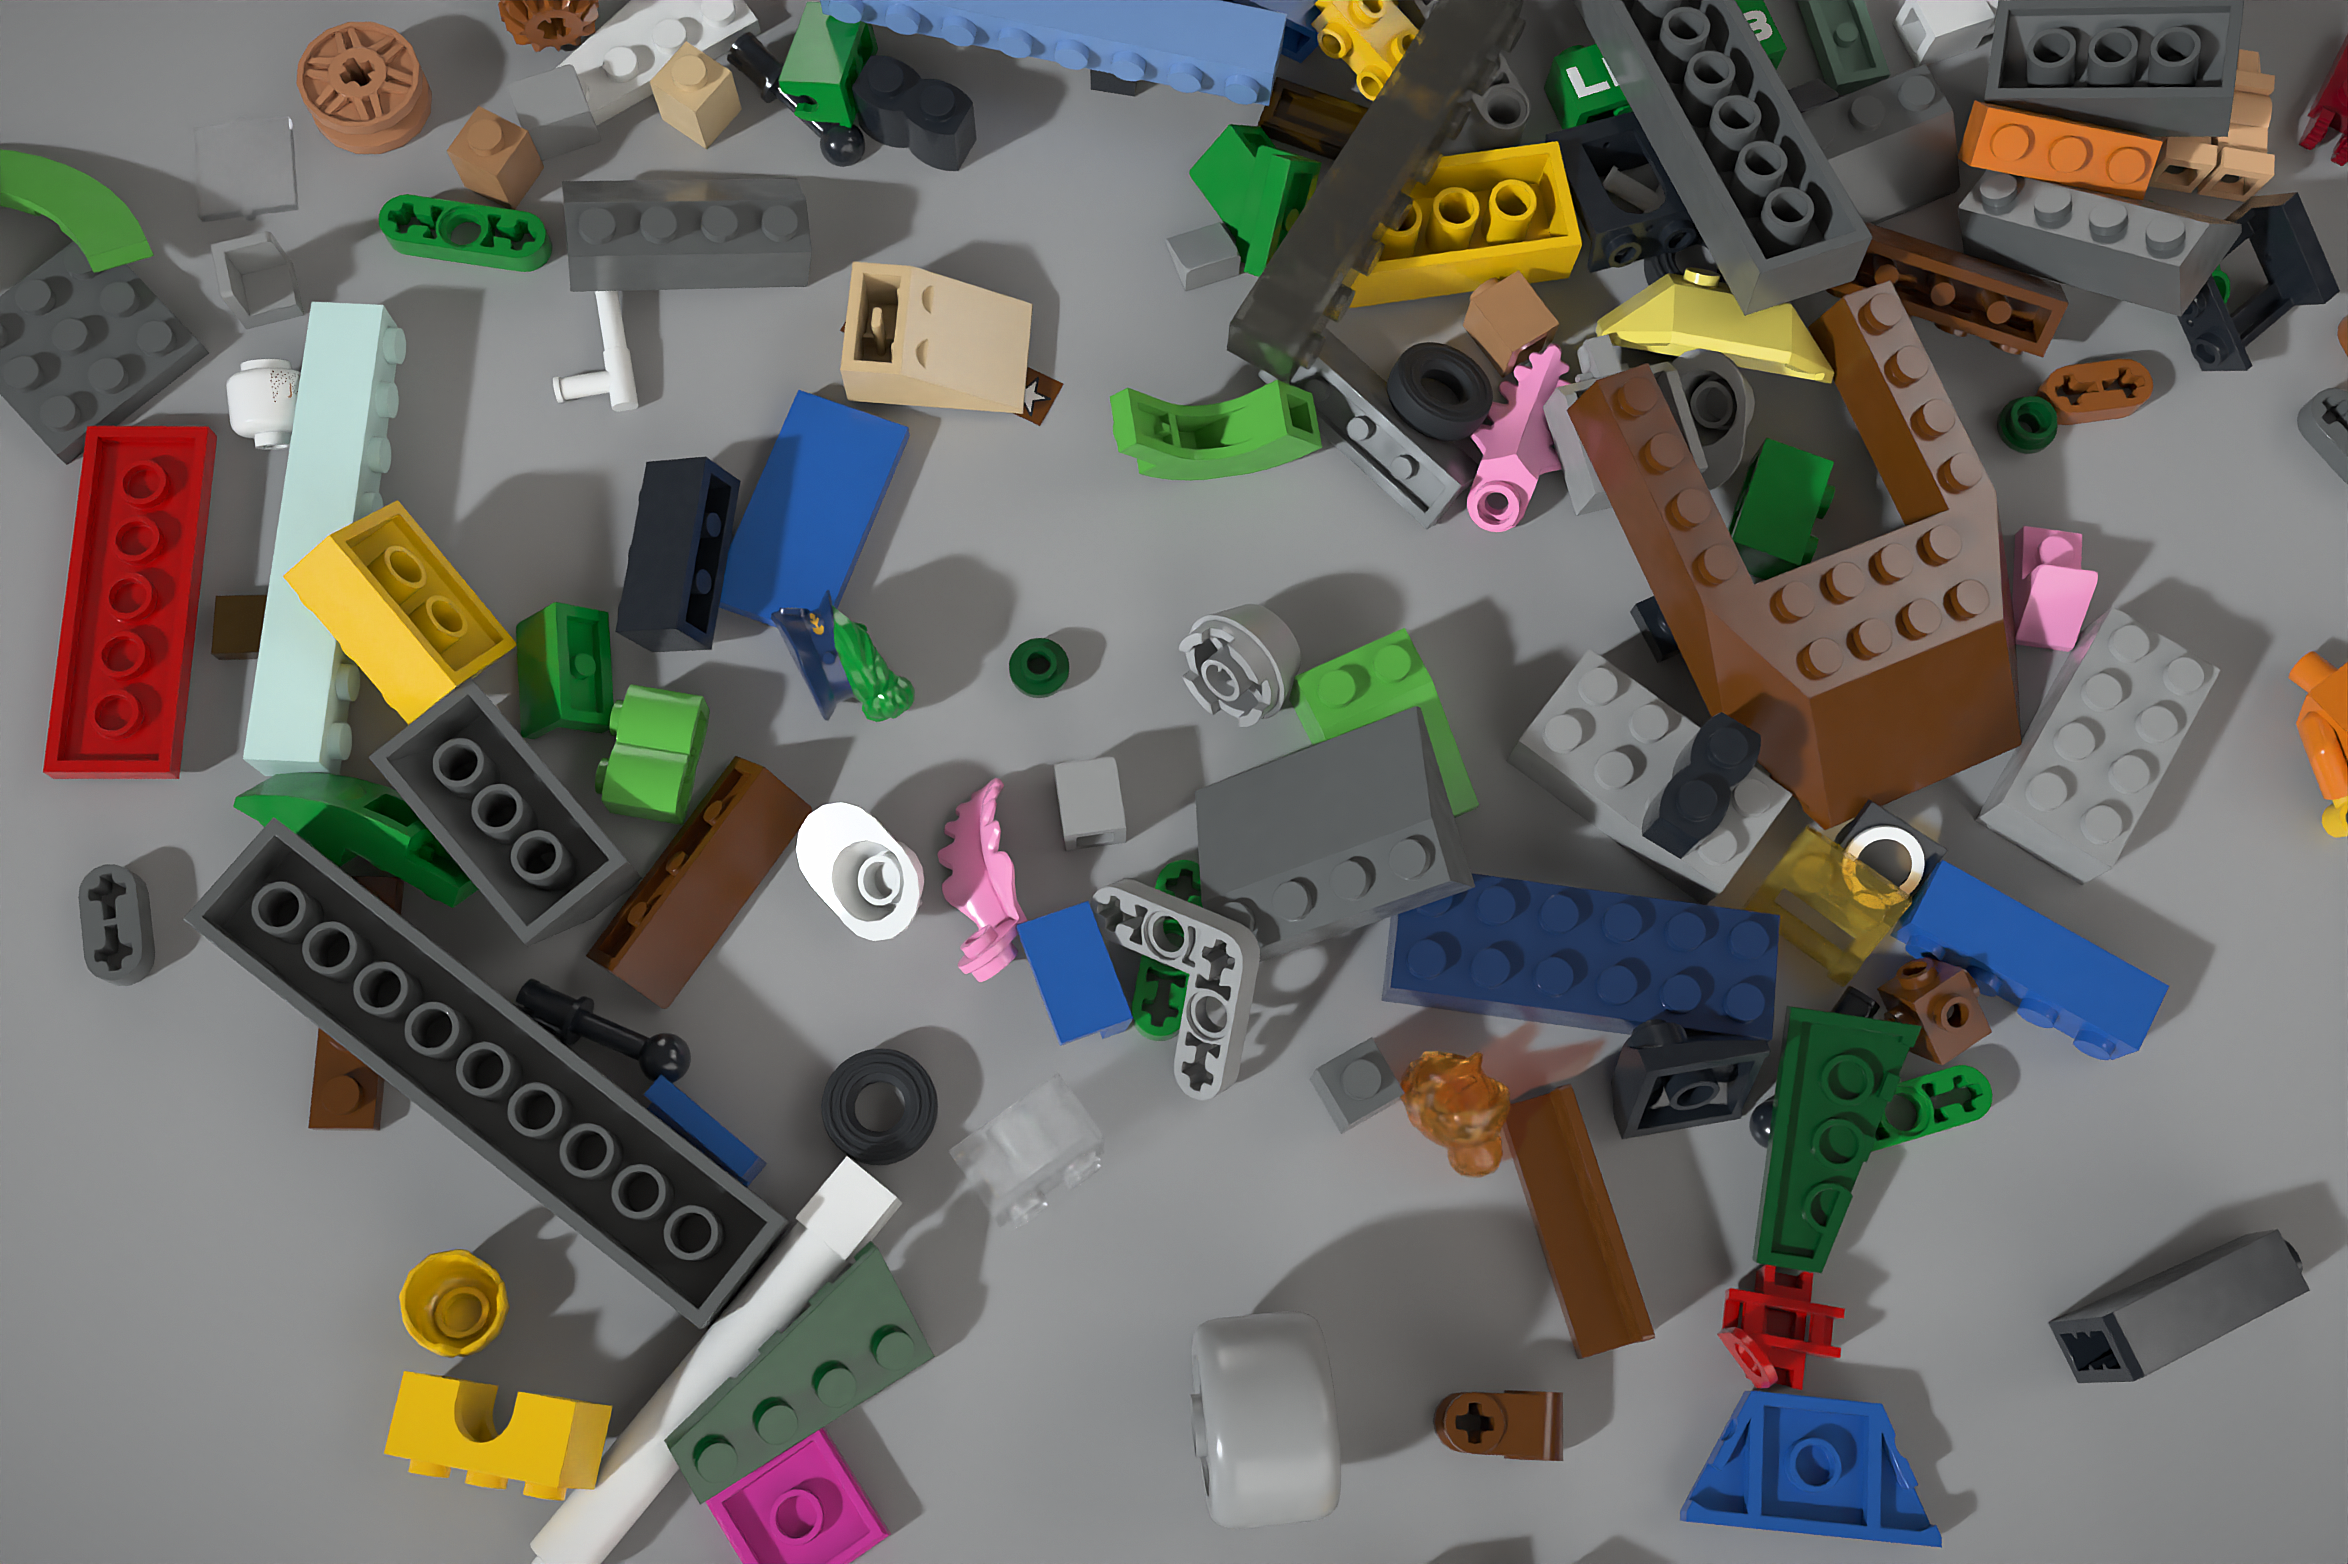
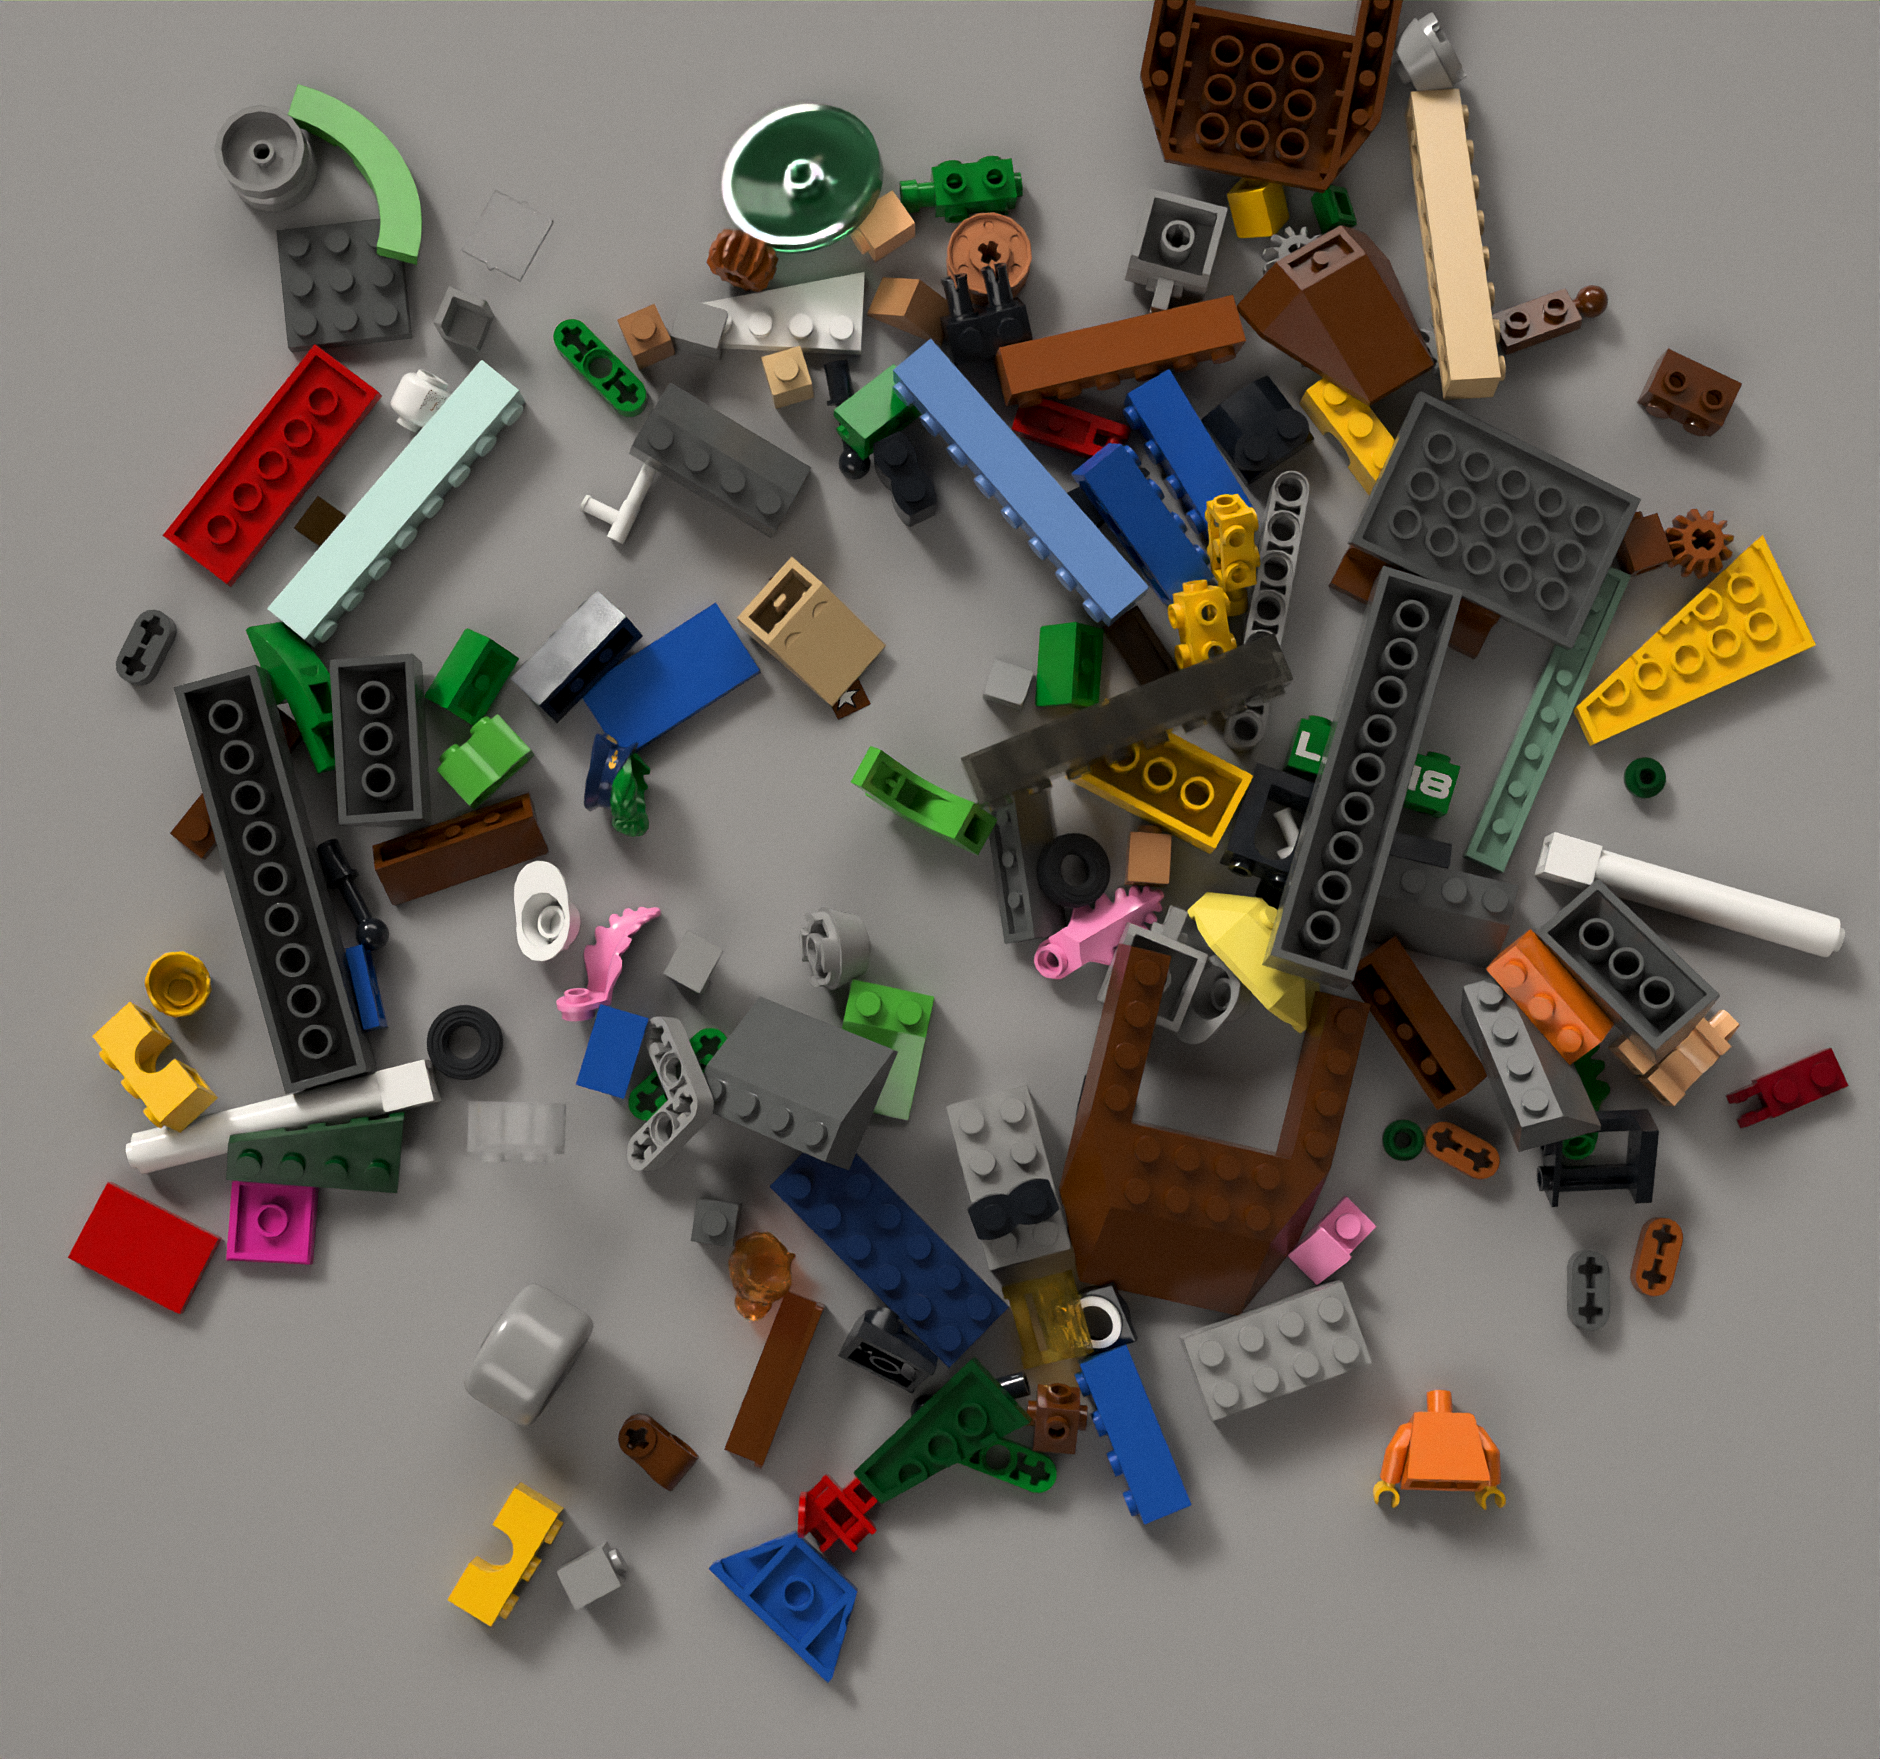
camera: 40 degrees right, 10 degrees up
(364, 87) = (601, 212): nougat wheel -> none
(399, 609) = (405, 585): yellow slope -> none
(1039, 684) = (729, 877): dark green plate -> none
(1275, 198) = (1059, 695): green panel -> none
(1779, 507) = (1208, 1083): green brick -> none
(2179, 1309) = (1056, 1668): black slope -> none

